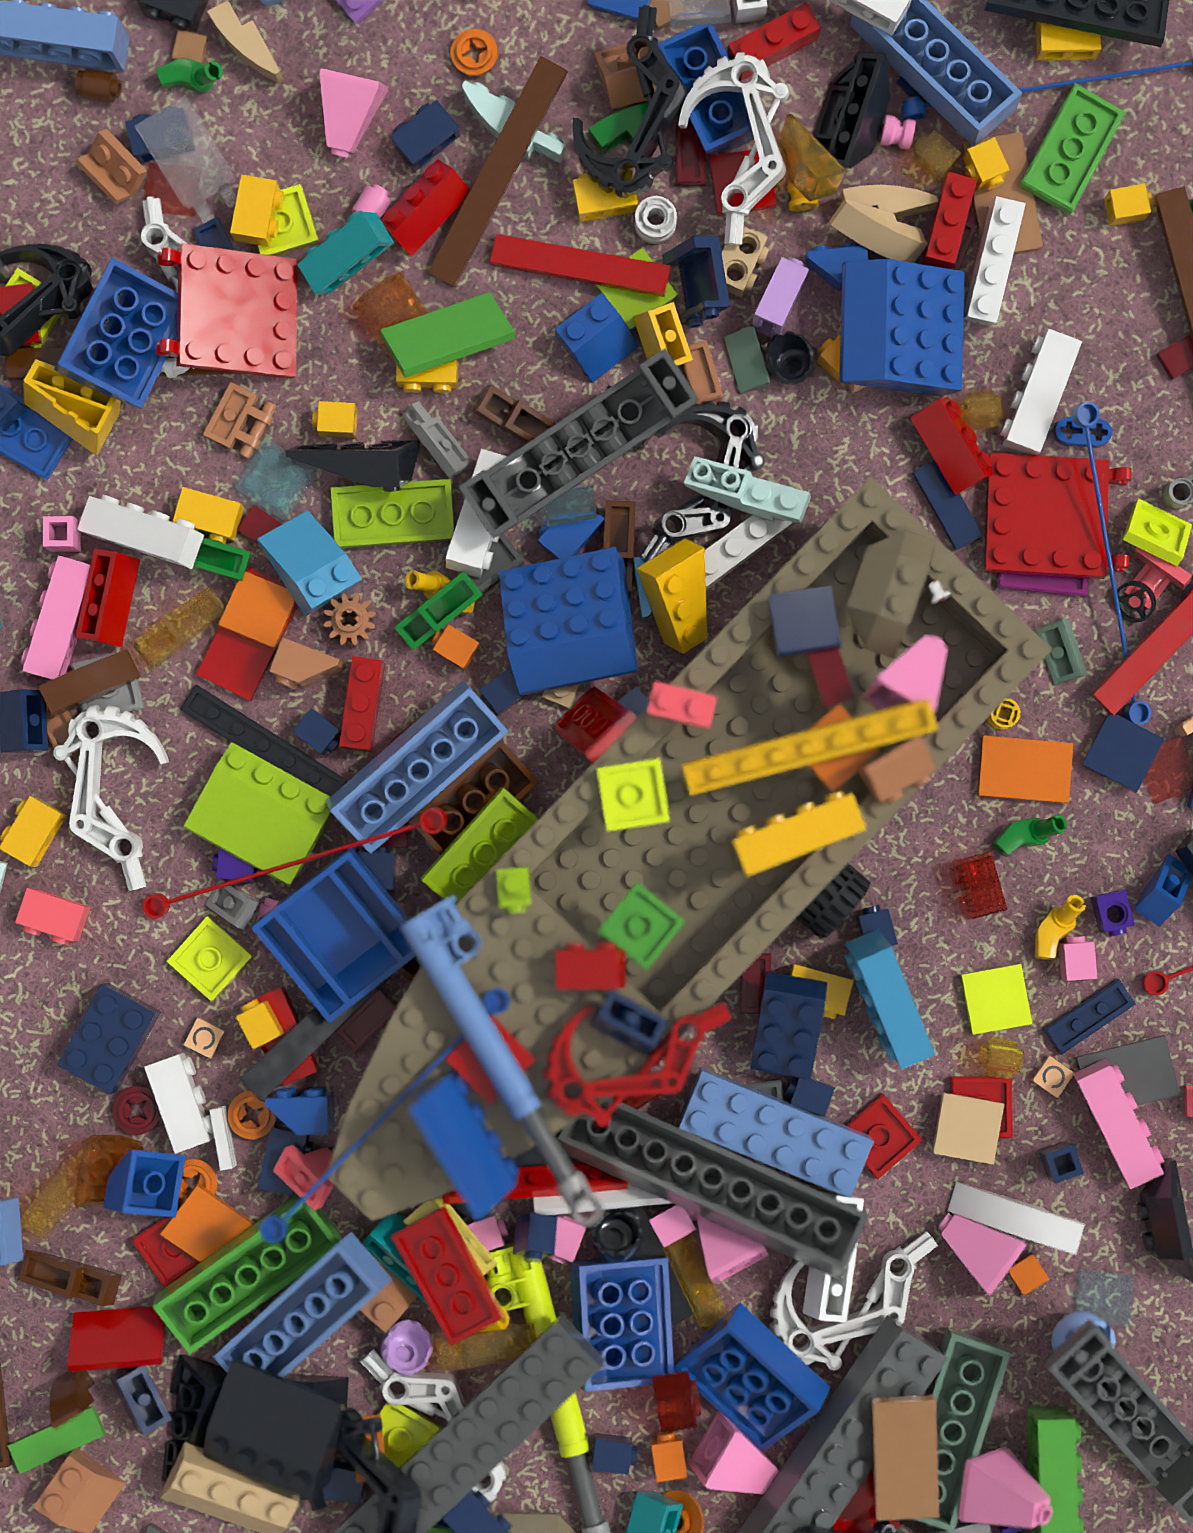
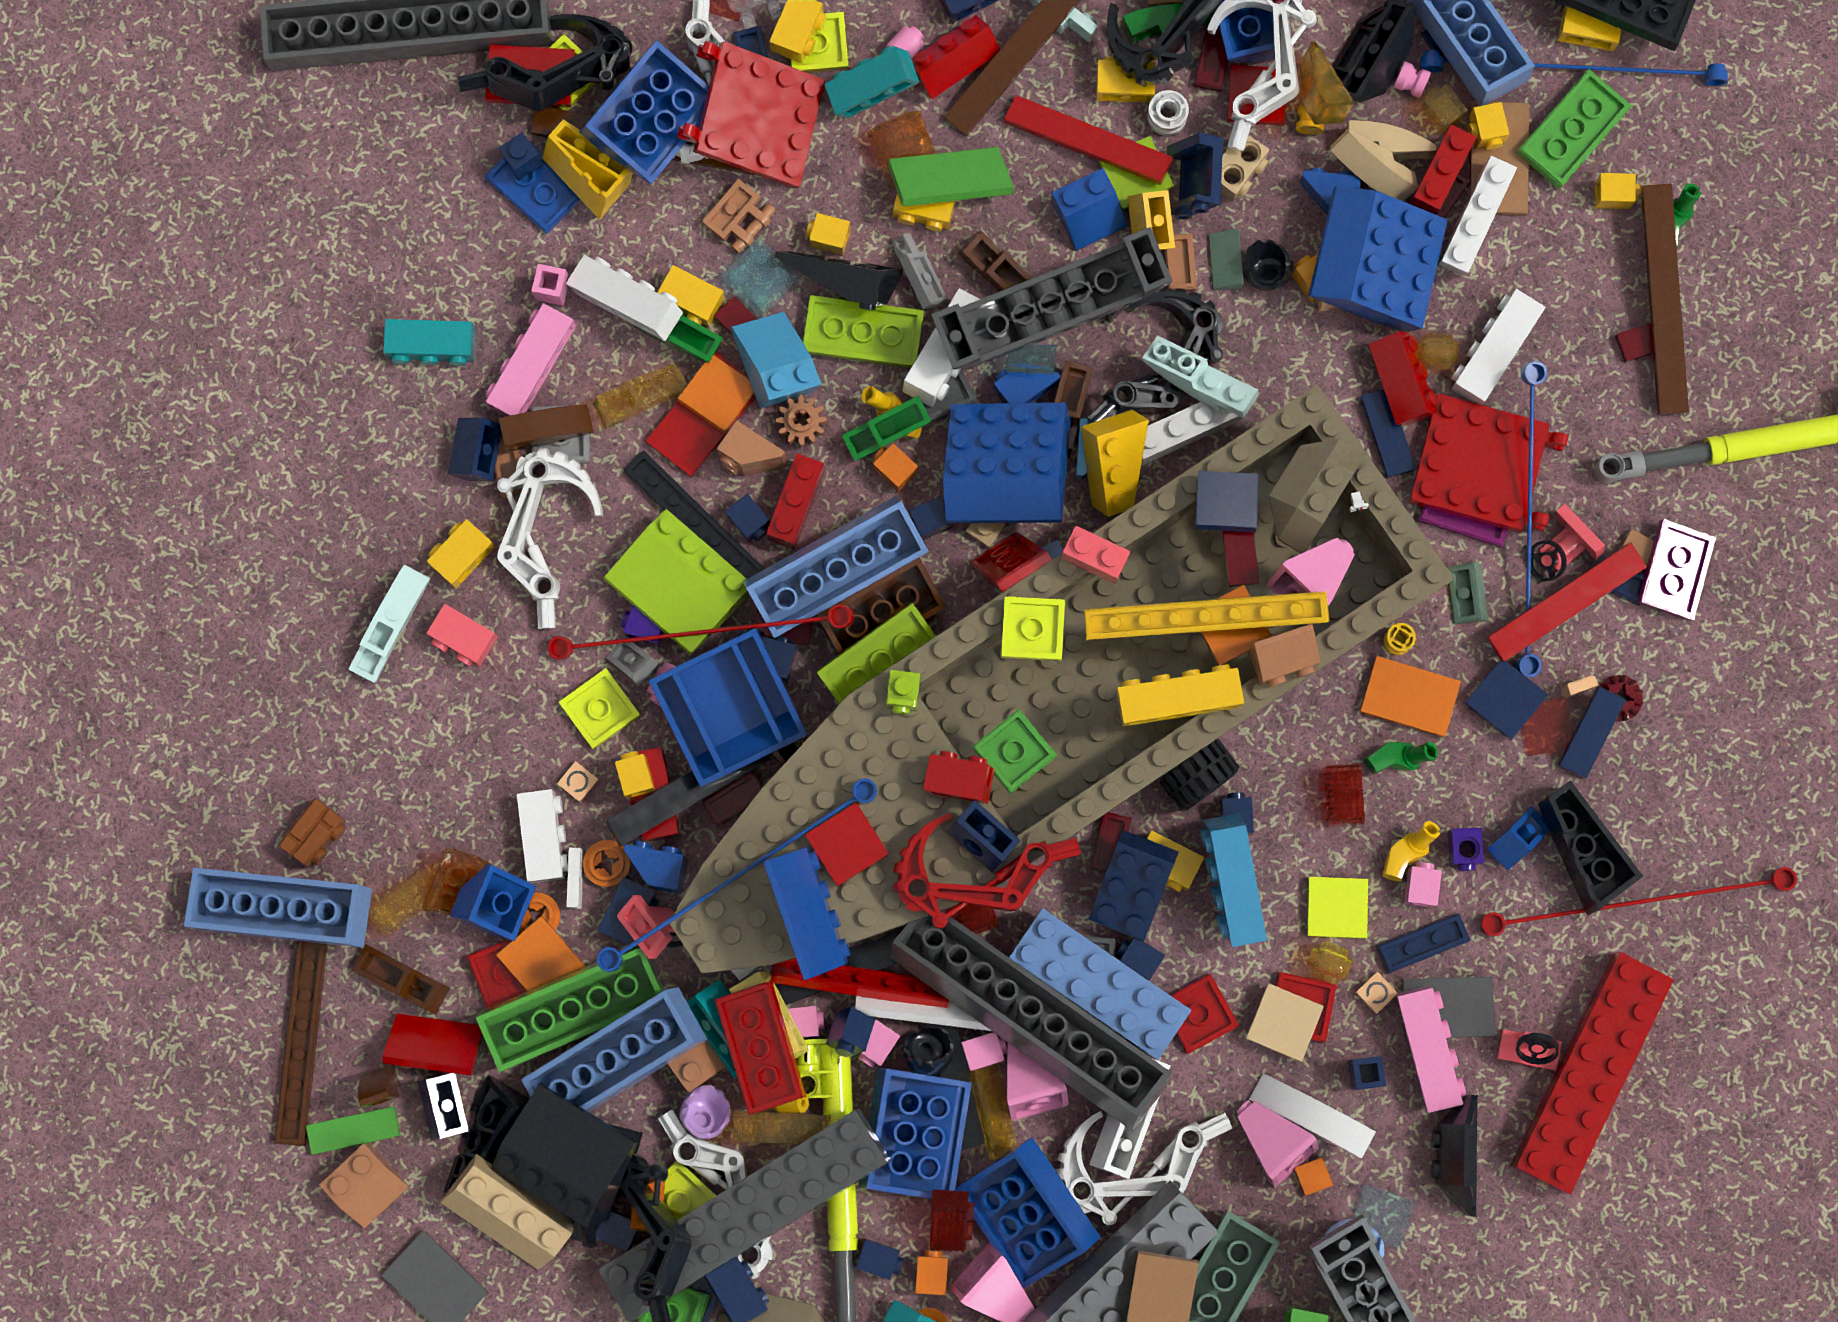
camera: 15 degrees right, 5 degrees down
(107, 597) = (580, 352): red brick -> none
(109, 1038) = (489, 761): dark blue brick -> none
(122, 1110) = (485, 833): dark red gear -> none
(435, 945) = (819, 724): medium blue piece -> none
(779, 297) = (1269, 207): lavender slope -> none
(1080, 439) = (1524, 398): blue beam -> none
(1157, 532) = (1581, 499): neon yellow tile -> none

